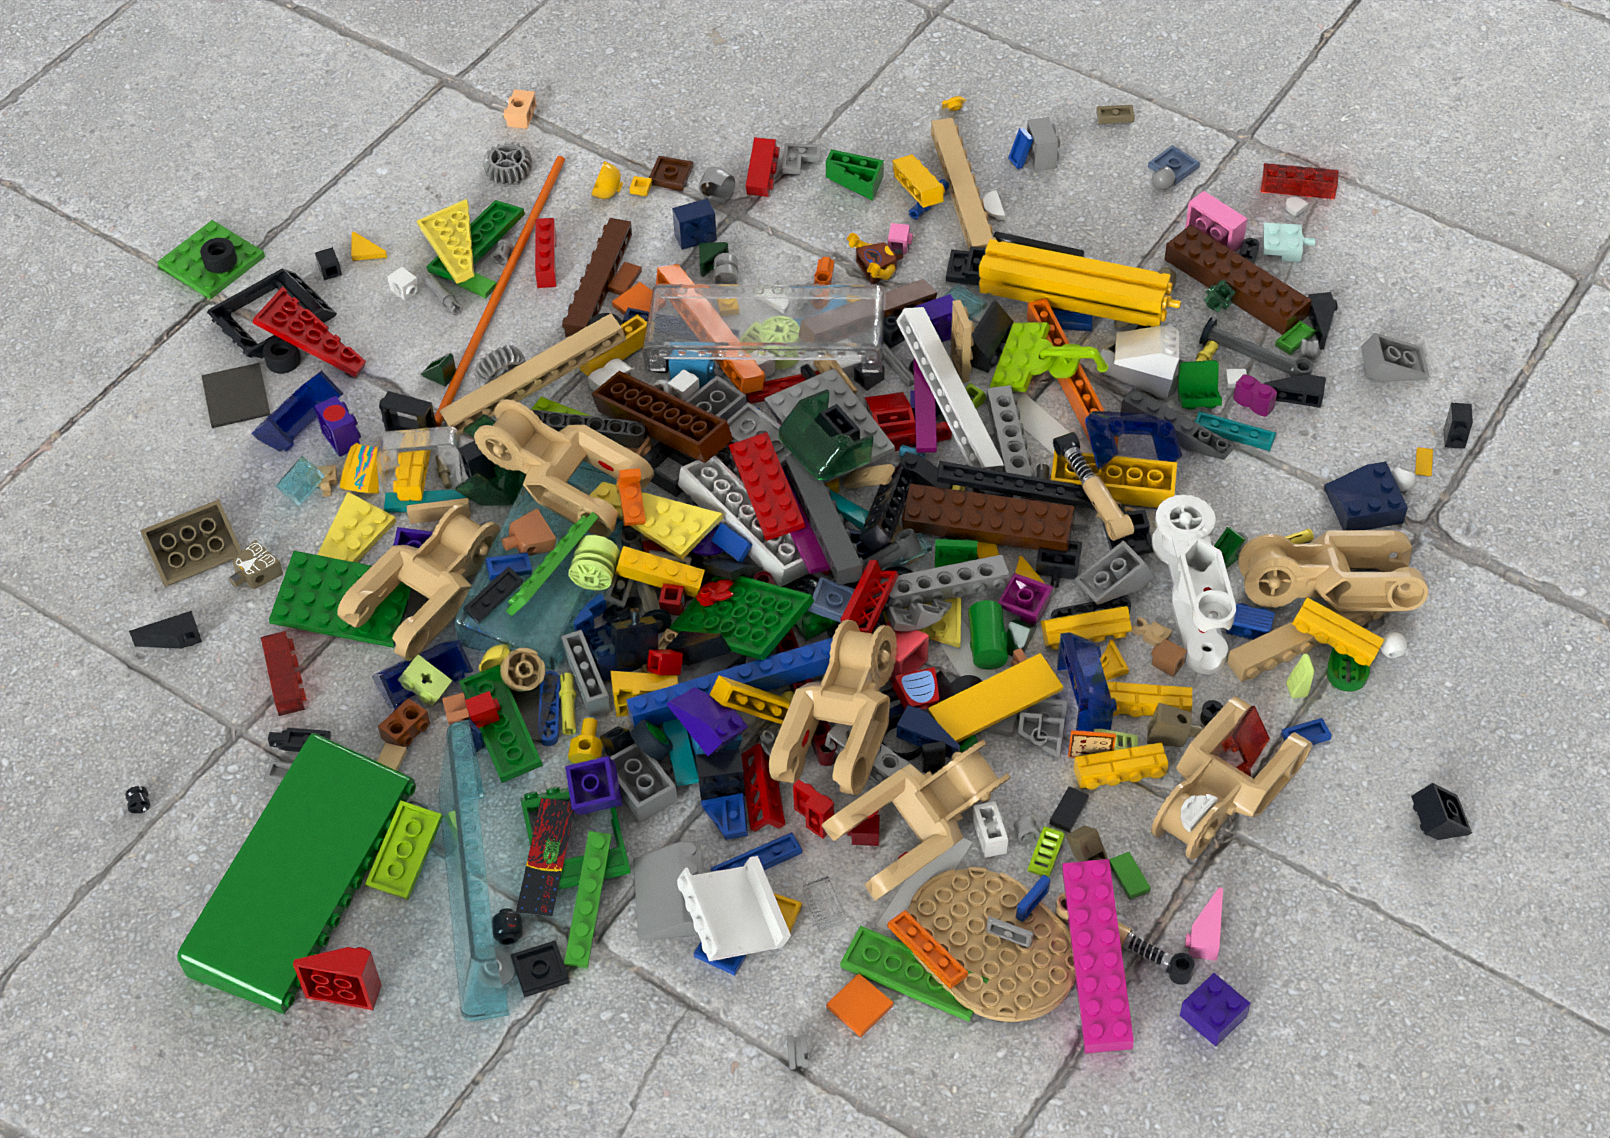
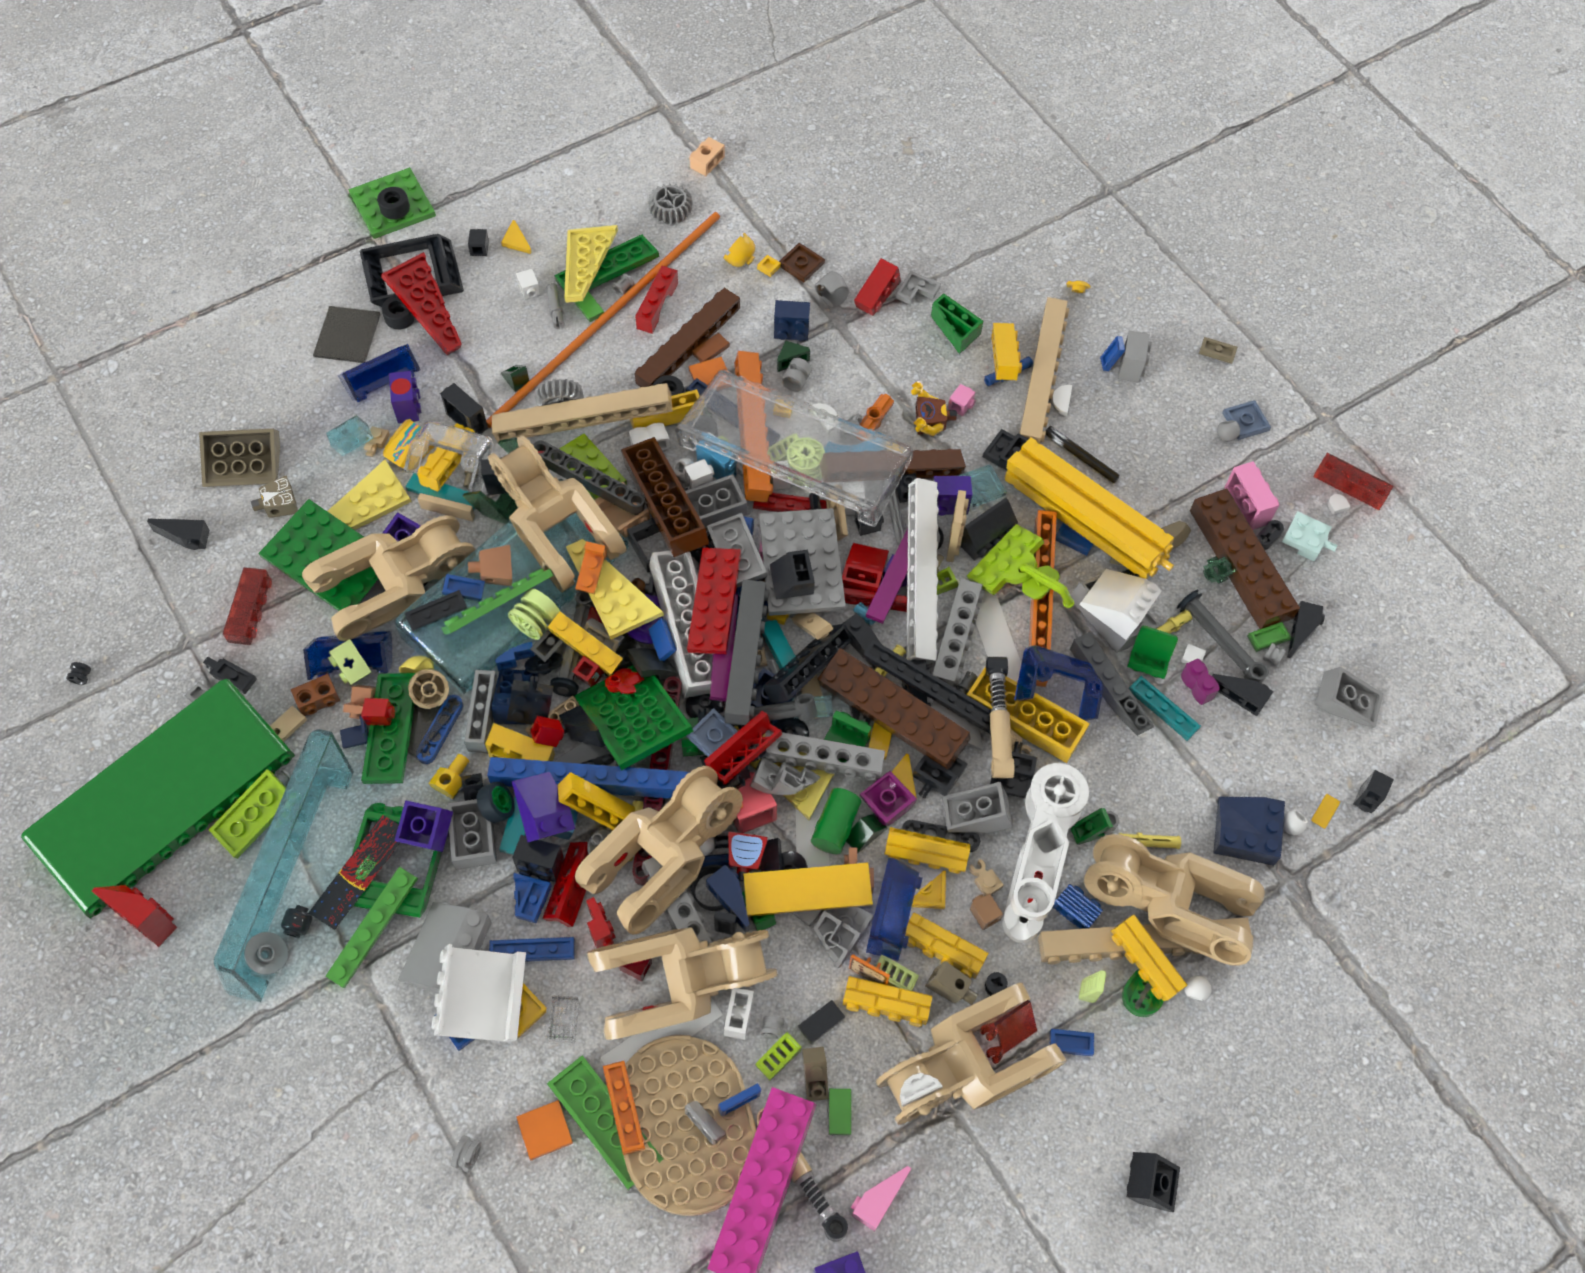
camera: 20 degrees right, 10 degrees up
(540, 968) = (305, 971): black tile -> none
(567, 698) = (458, 725): light yellow pin -> none
(814, 448) = (770, 594): clear green windscreen -> none

